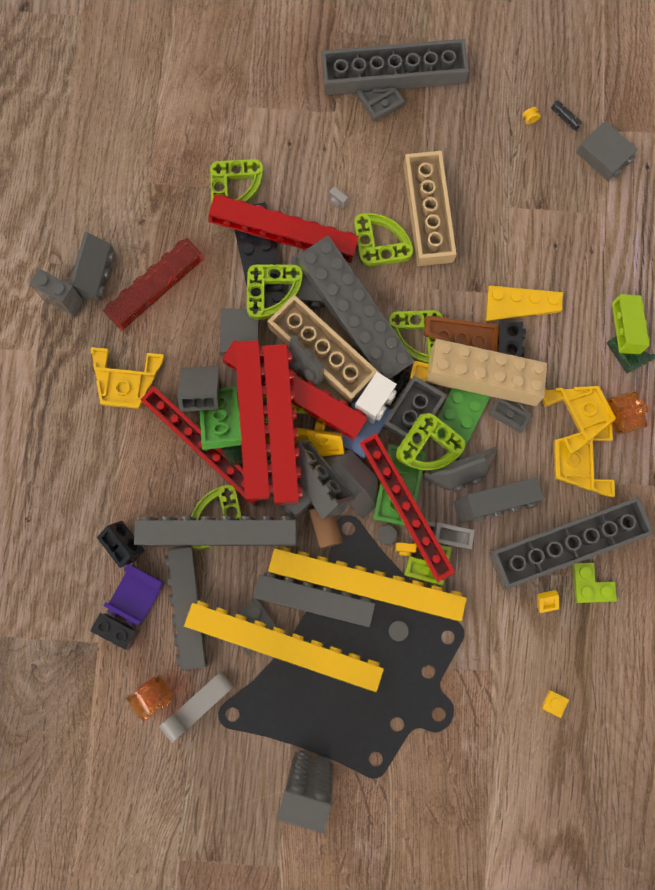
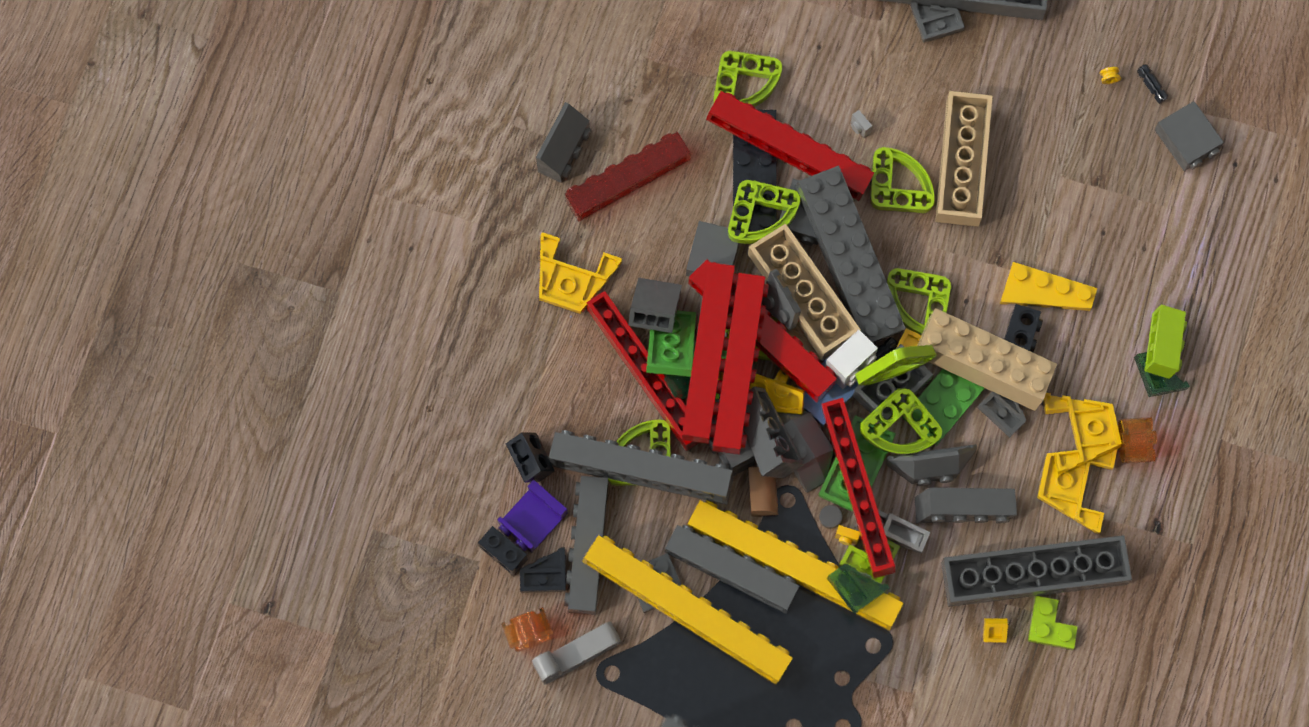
camera: 15 degrees right, 5 degrees down
(56, 292) = (518, 162): dark grey brick -> none
(155, 642) = (545, 574): none -> black wing
(398, 631) = (818, 624): dark grey tile -> none
(415, 394) = (895, 364): none -> lime beam
(424, 595) = (856, 587): none -> clear green wing
(462, 332) = (969, 308): dark orange wing -> none

